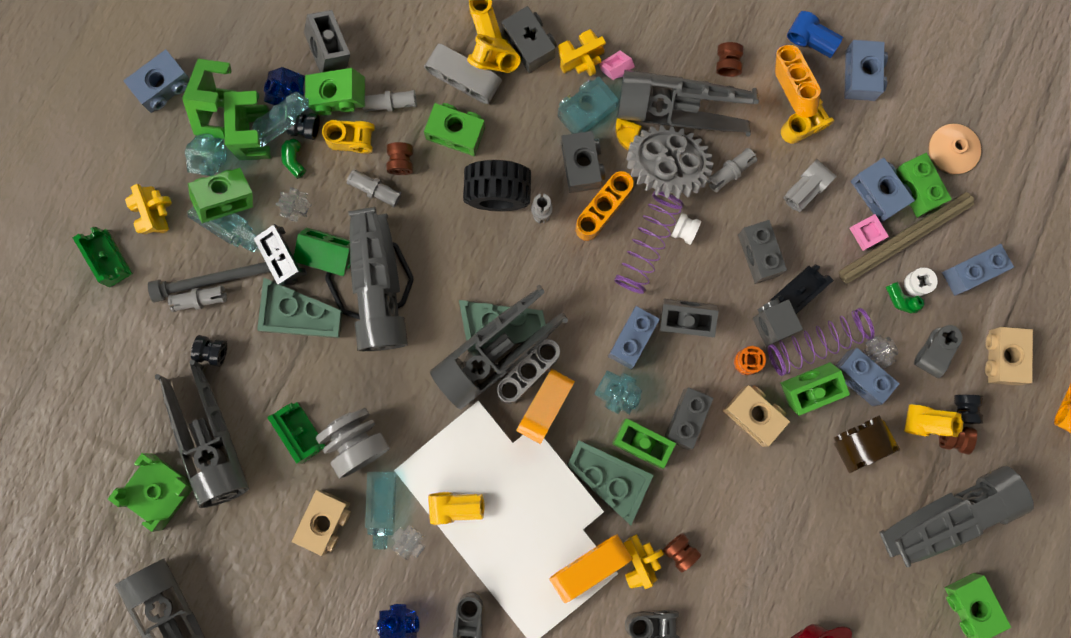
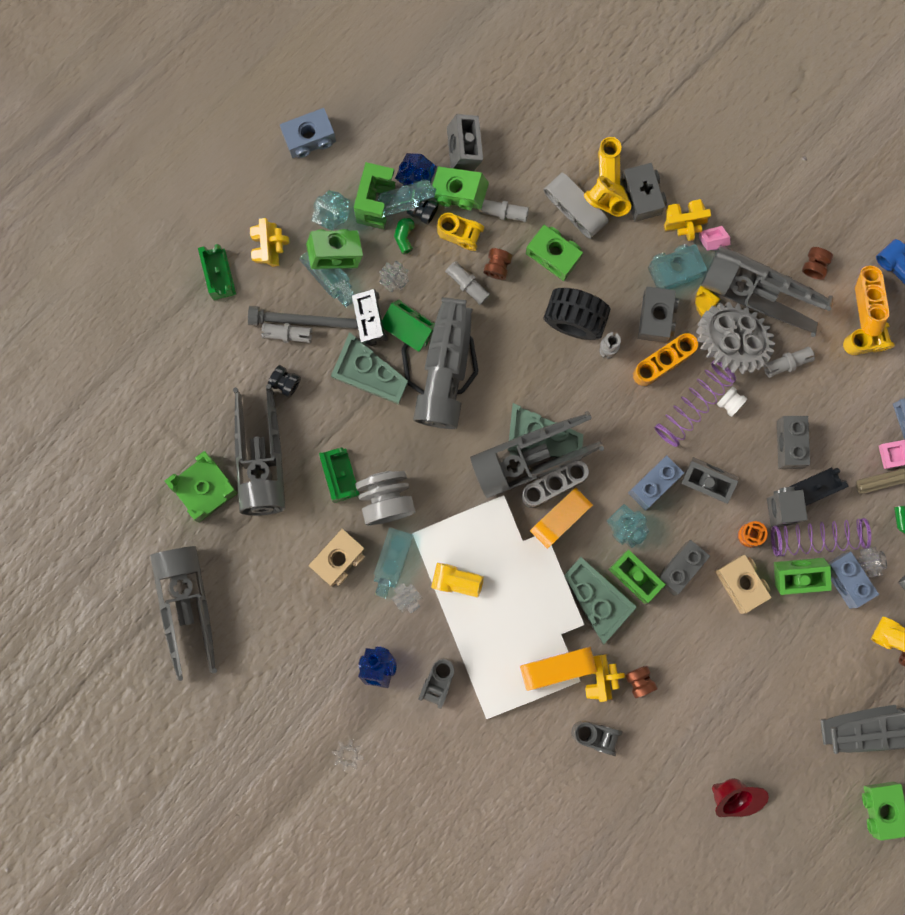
camera: 20 degrees right, 0 degrees up
(203, 97) = (346, 161): bright green panel -> none
(813, 181) = (856, 395): light grey piece -> none
(866, 445) = (832, 638): dark brown brick -> none

